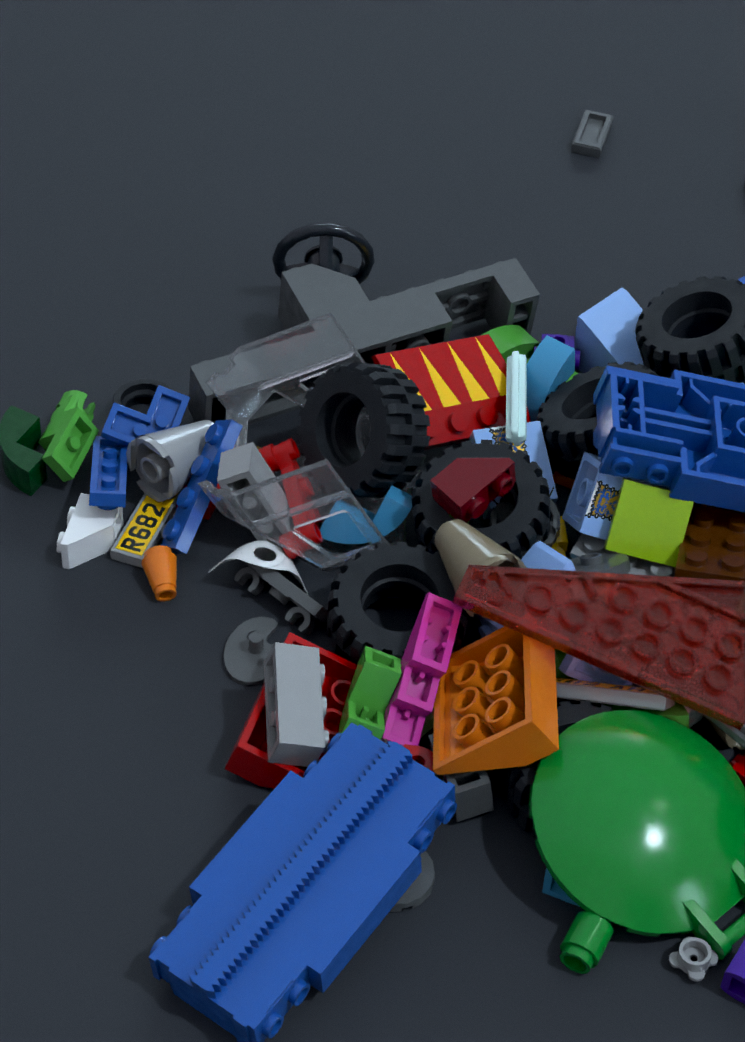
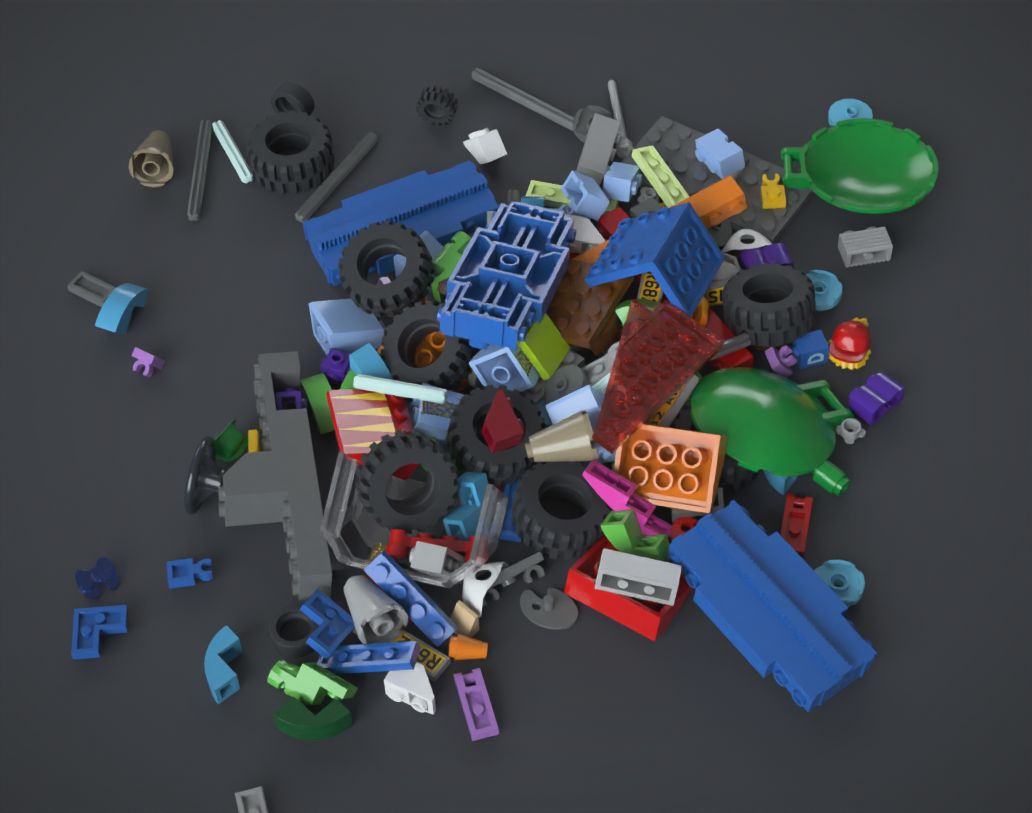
camera: 70 degrees left, 5 degrees up
(67, 353) = (220, 677): none -> dark azure brick
(80, 598) = (476, 705): none -> medium lavender plate
(106, 240) = (91, 624): none -> blue plate
(170, 225) = (88, 580): none -> clear blue piece
(198, 570) = (465, 619): none -> tan slope
(203, 298) = (184, 572): none -> blue plate
(392, 278) = (230, 443): none -> green piece
(394, 963) = (847, 576): none -> medium azure plate
(472, 319) = (290, 396): none -> dark purple brick
(483, 908) = (796, 522): none -> red plate
(499, 197) = (147, 360): none -> medium lavender tile
(557, 149) = (119, 306): none -> dark azure brick

